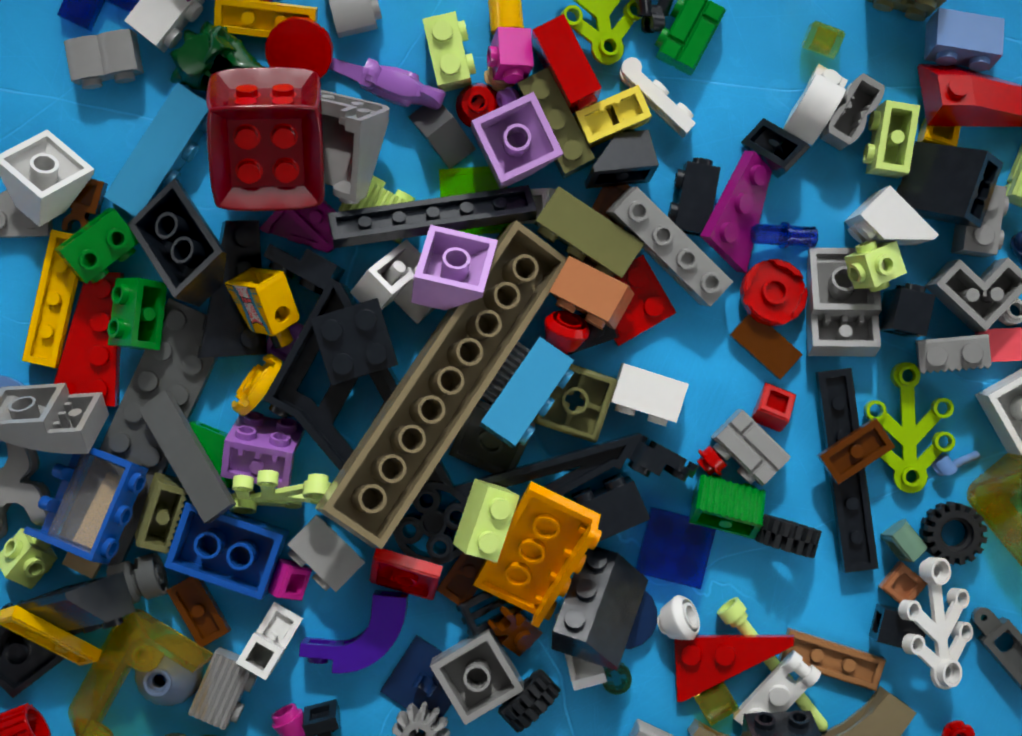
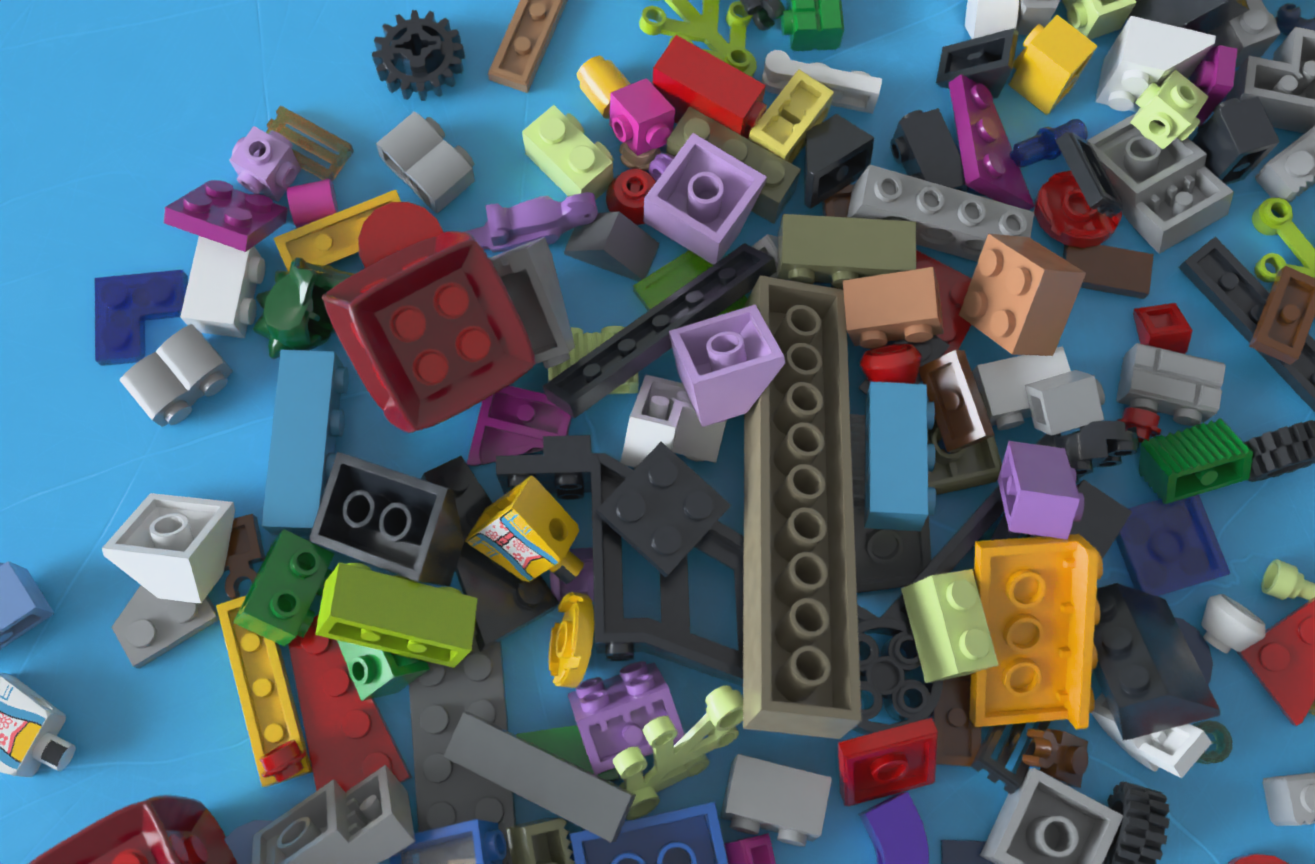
camera: 35 degrees left, 15 degrees down
(40, 354) = (283, 761): none -> red plate
(152, 309) = (397, 615): none -> lime brick
(591, 379) = (956, 401): none -> reddish brown plate
(595, 472) = (1039, 490): none -> medium lavender brick
(660, 423) = (1065, 402): none -> light grey brick
(679, 335) = (1021, 295): none -> nougat brick
(792, 276) = (1089, 174): none -> black tile
(820, 180) = (1051, 63): none -> yellow brick
(925, 258) = (1214, 77): none -> magenta wing

